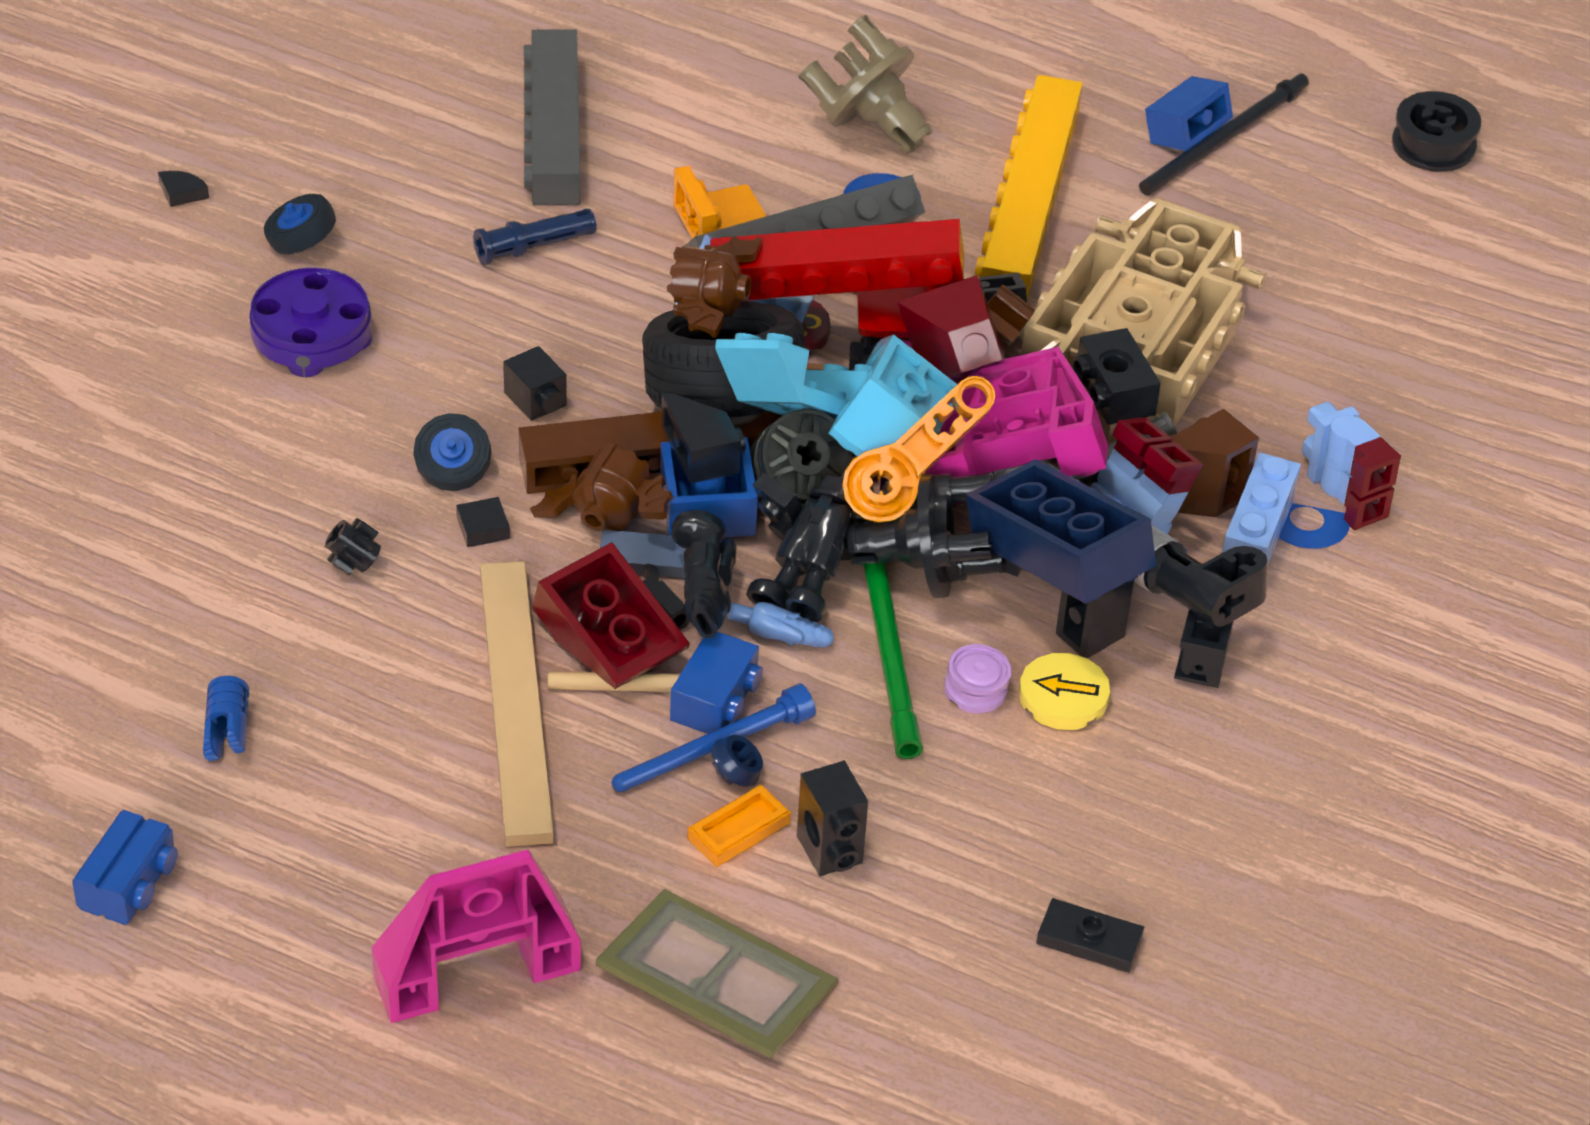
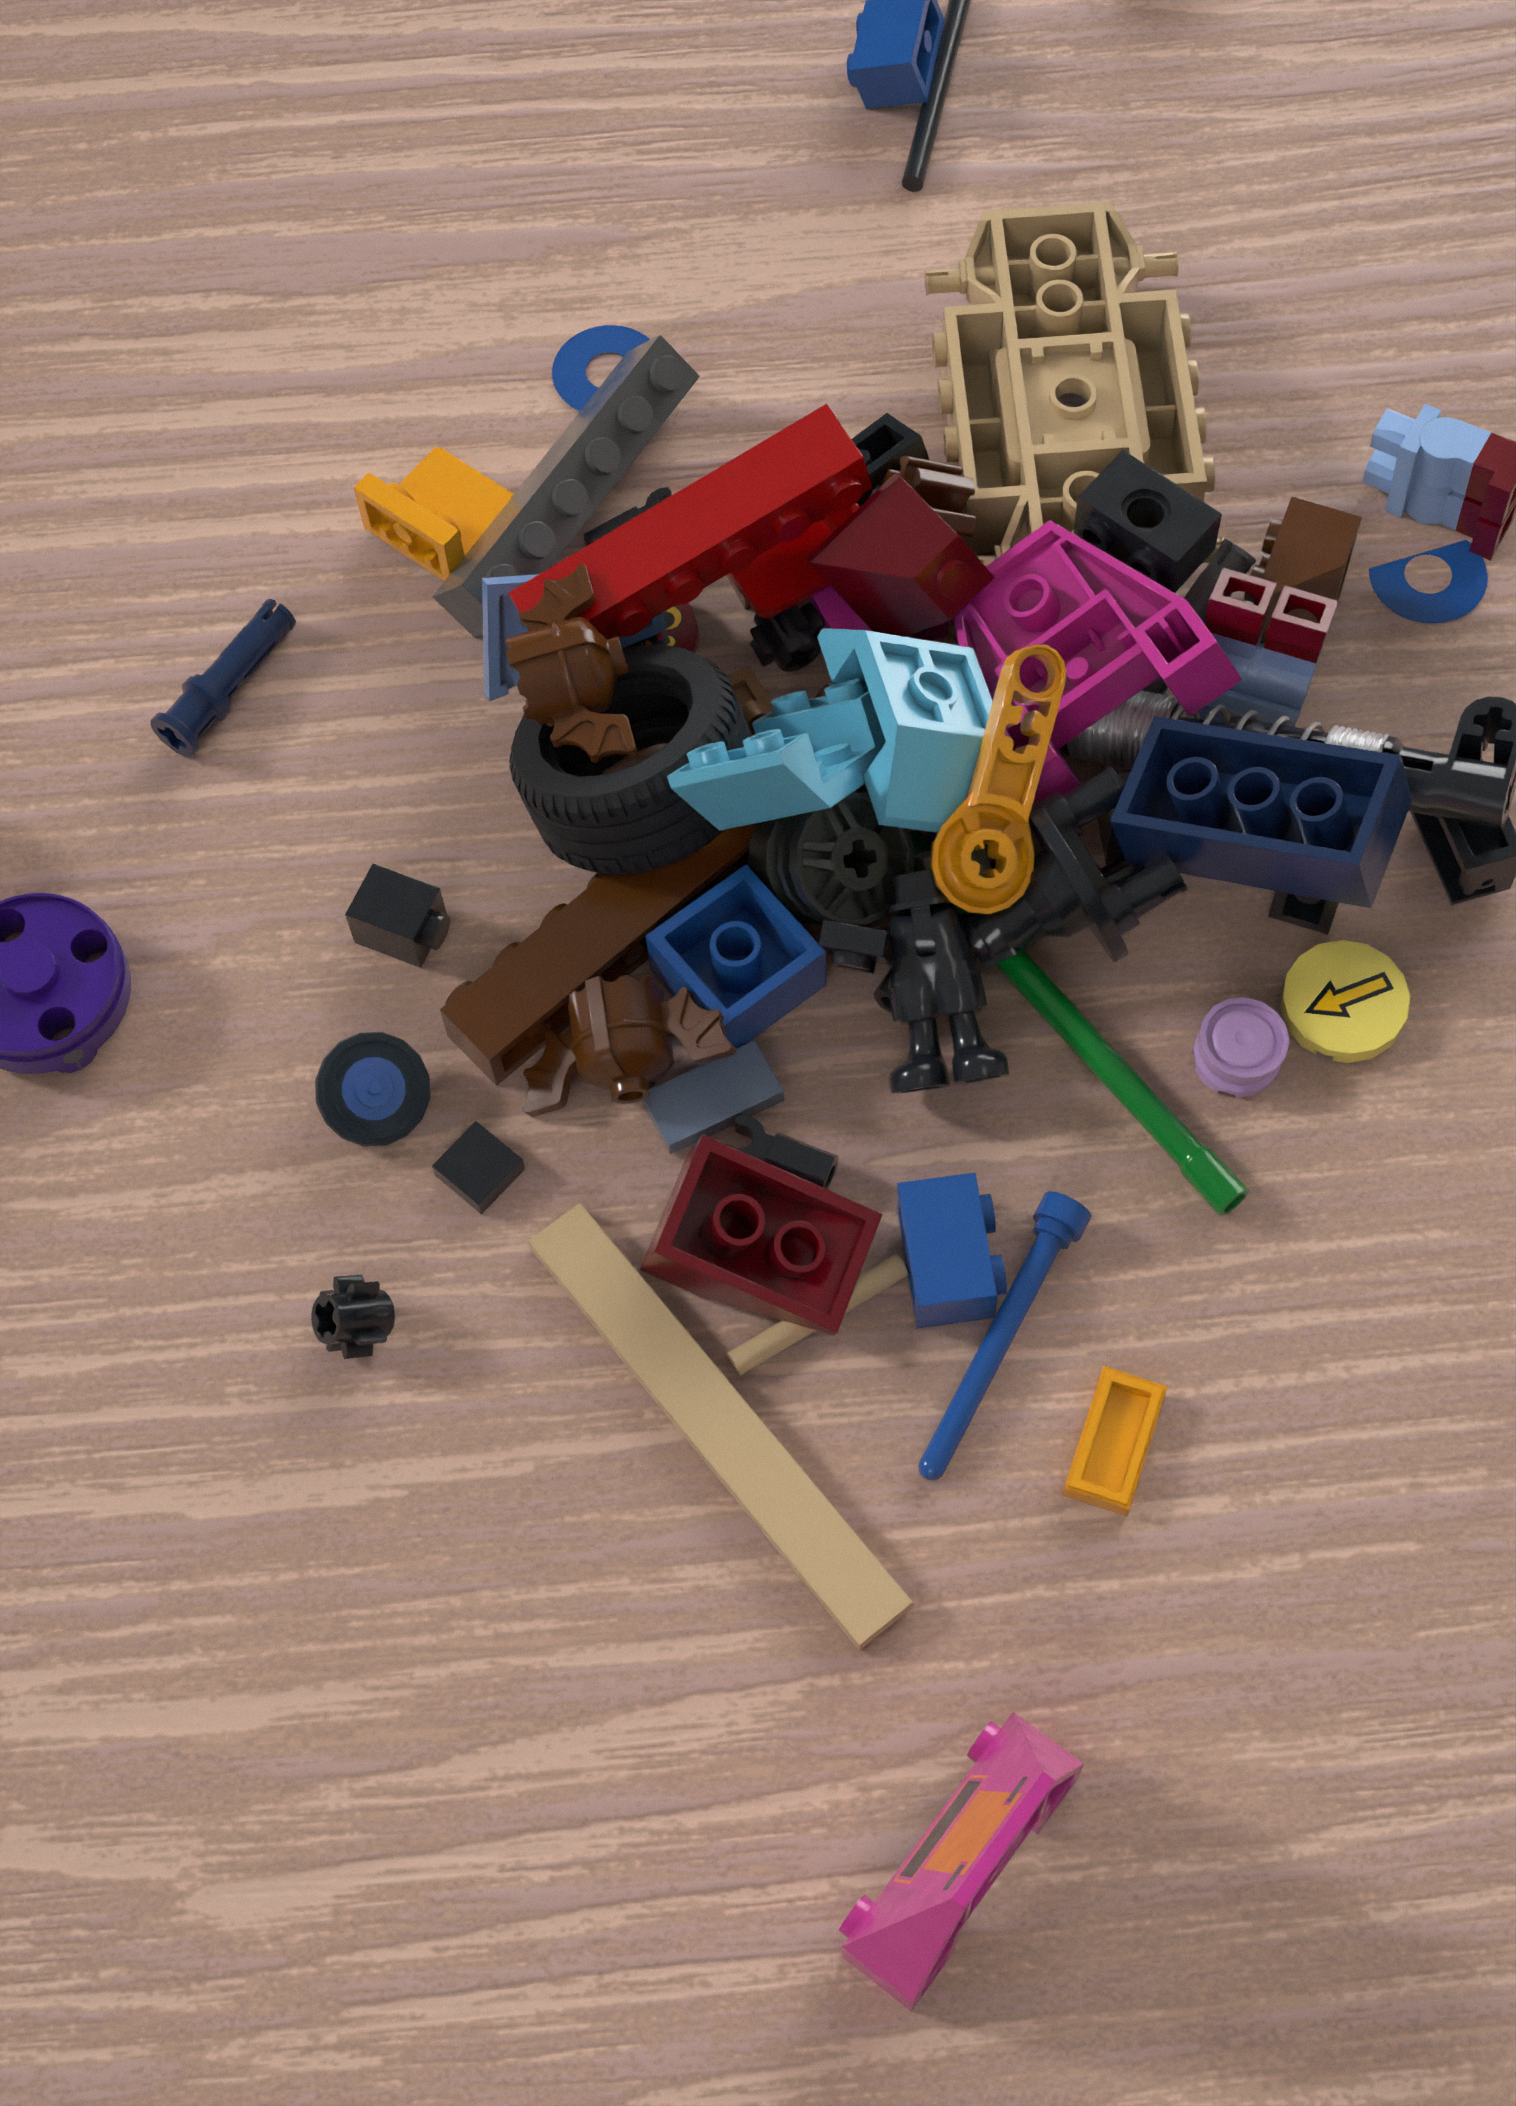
camera: 25 degrees left, 20 degrees up
(125, 867) = (427, 2011): blue brick -> none
(225, 716) = (378, 1678): blue hinge -> none
(554, 122) = (120, 474): dark grey brick -> none
(701, 438) = (705, 910): black slope -> none
(706, 567) = (817, 1068): black piece -> none
(717, 972) = (1248, 1682): clear door -> none
(737, 760) = (1052, 1349): dark blue hat -> none
(780, 624) = (955, 1108): medium blue piece -> none
(832, 818) = (1248, 1383): black brick -> none
(875, 87) = (507, 217): dark tan piece -> none
(1031, 180) = (784, 252): yellow brick -> none
(1263, 505) = (1399, 617): light blue brick -> none

